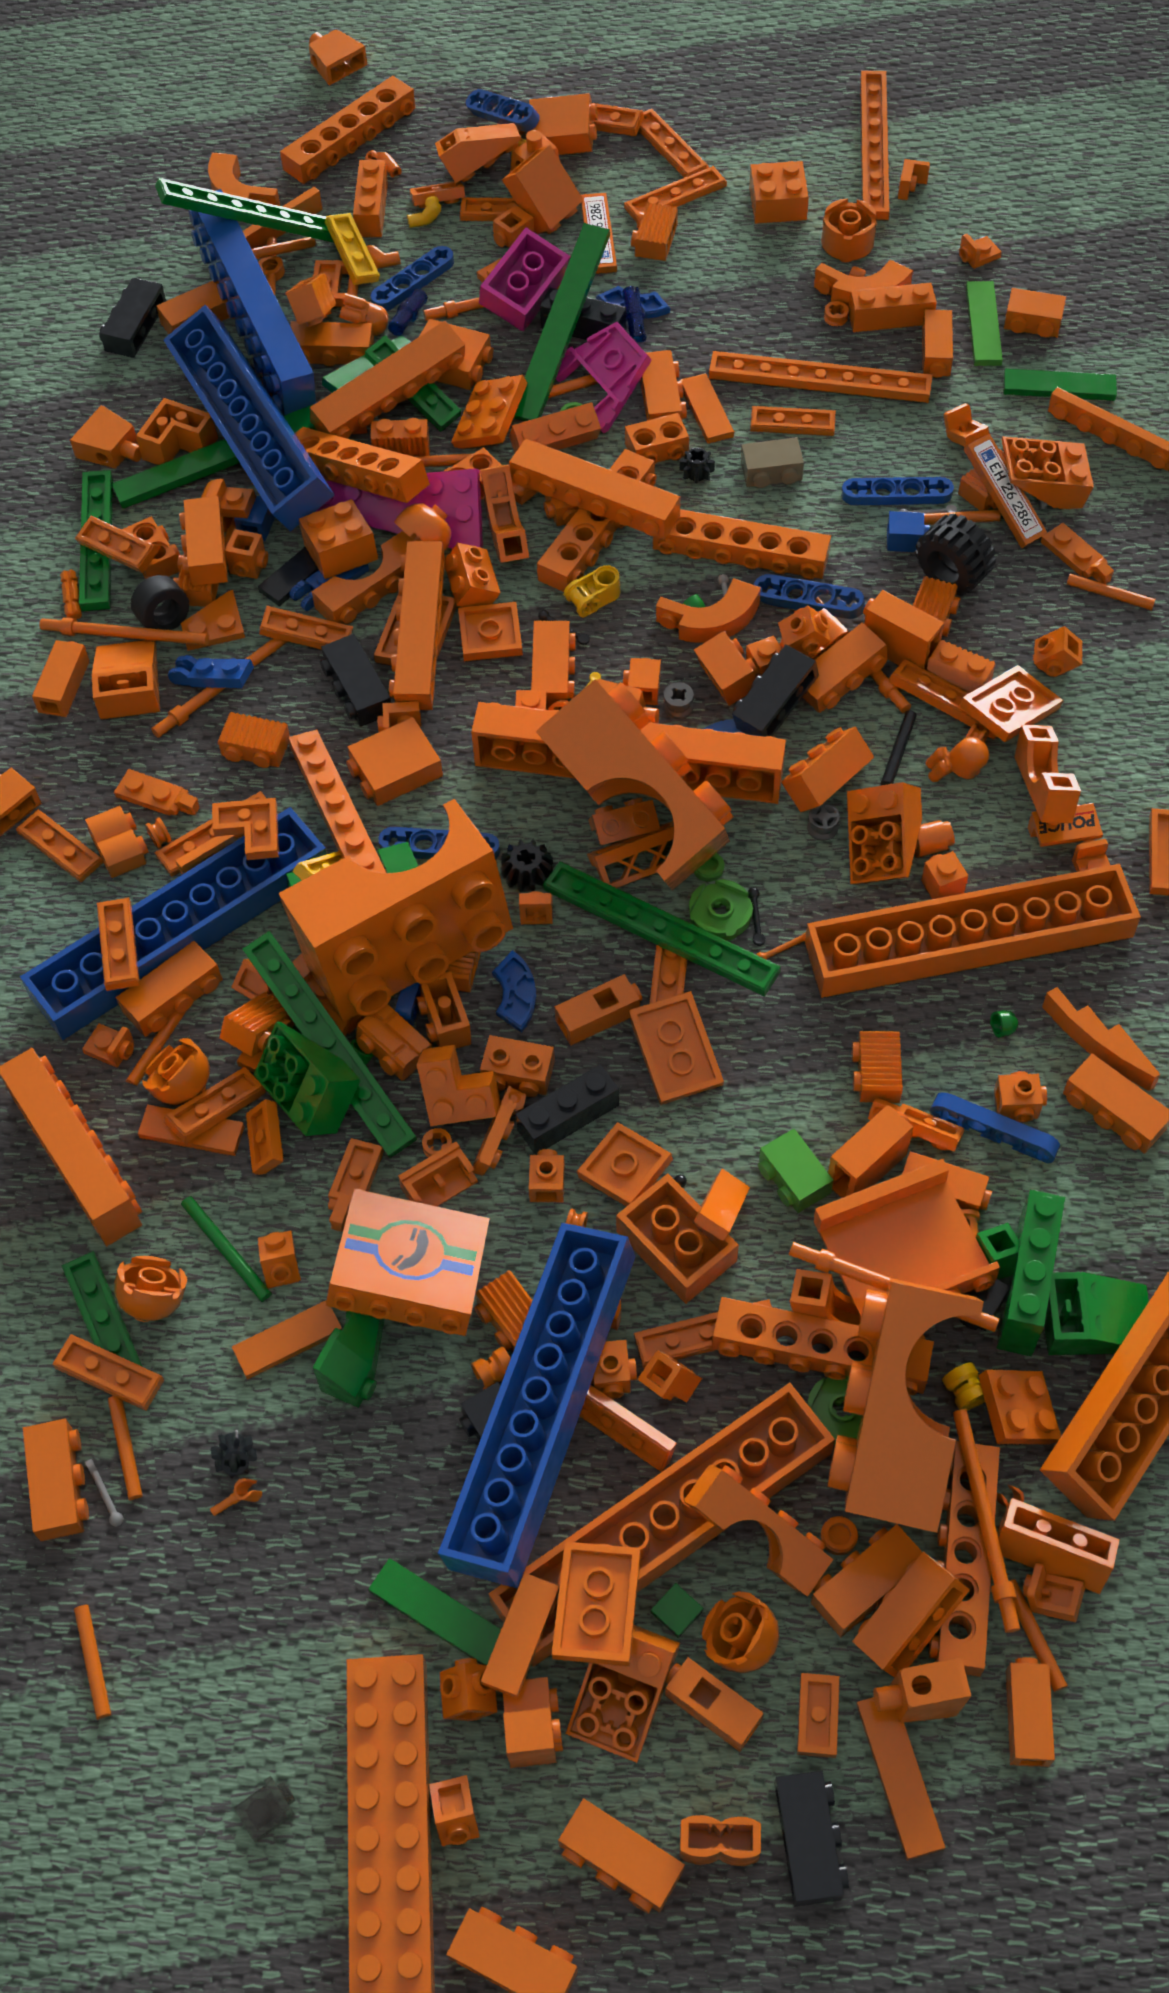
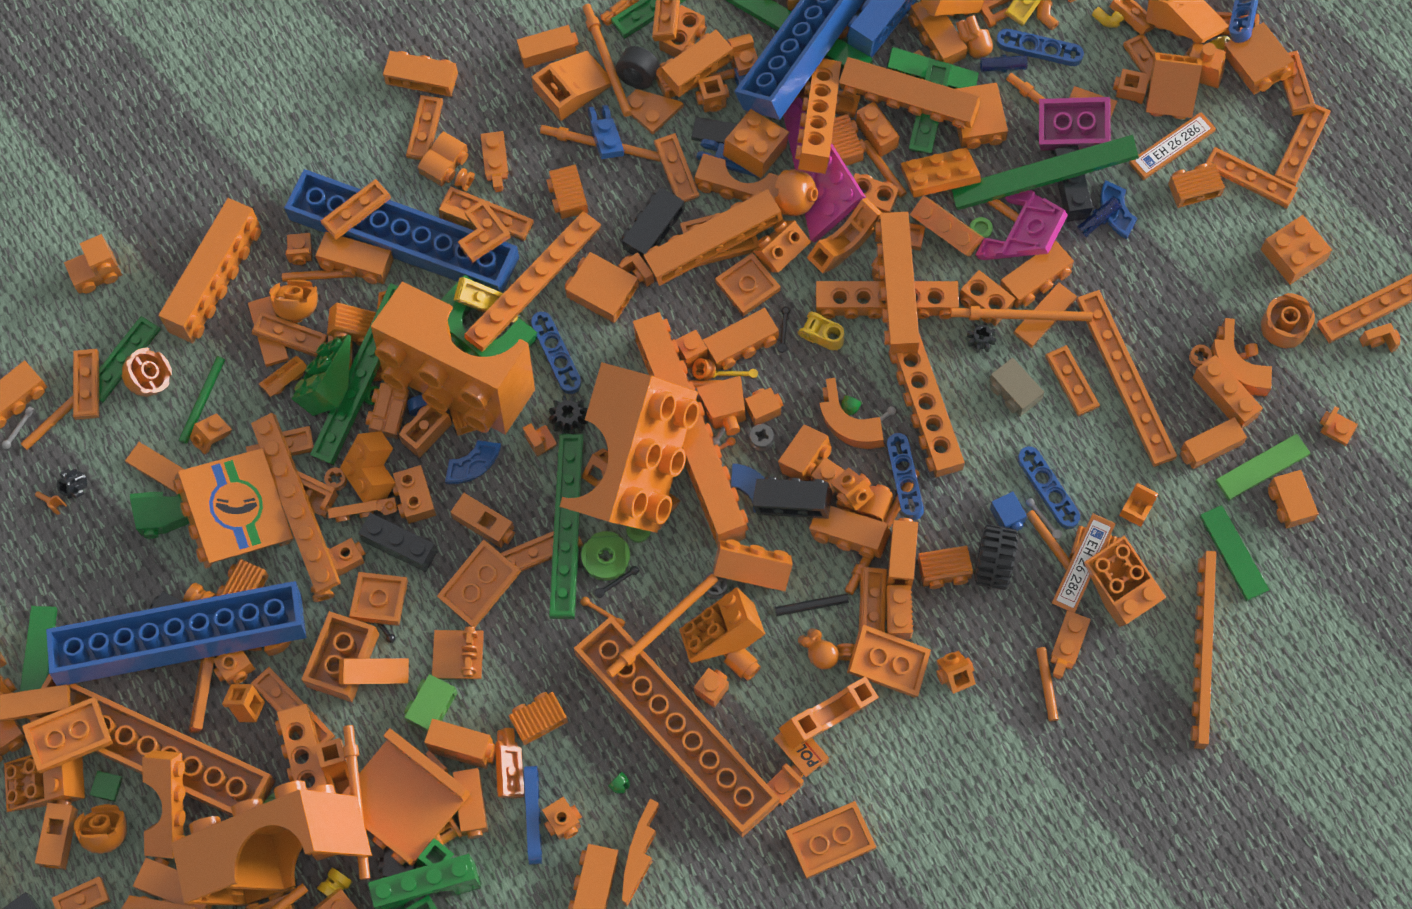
camera: 60 degrees right, 10 degrees up
(450, 1190) = (296, 504): none -> orange plate
(675, 444) = (976, 313): none -> orange bar
(745, 1116) = (458, 654): none -> orange hinge
(869, 922) = (628, 656): none -> orange bar

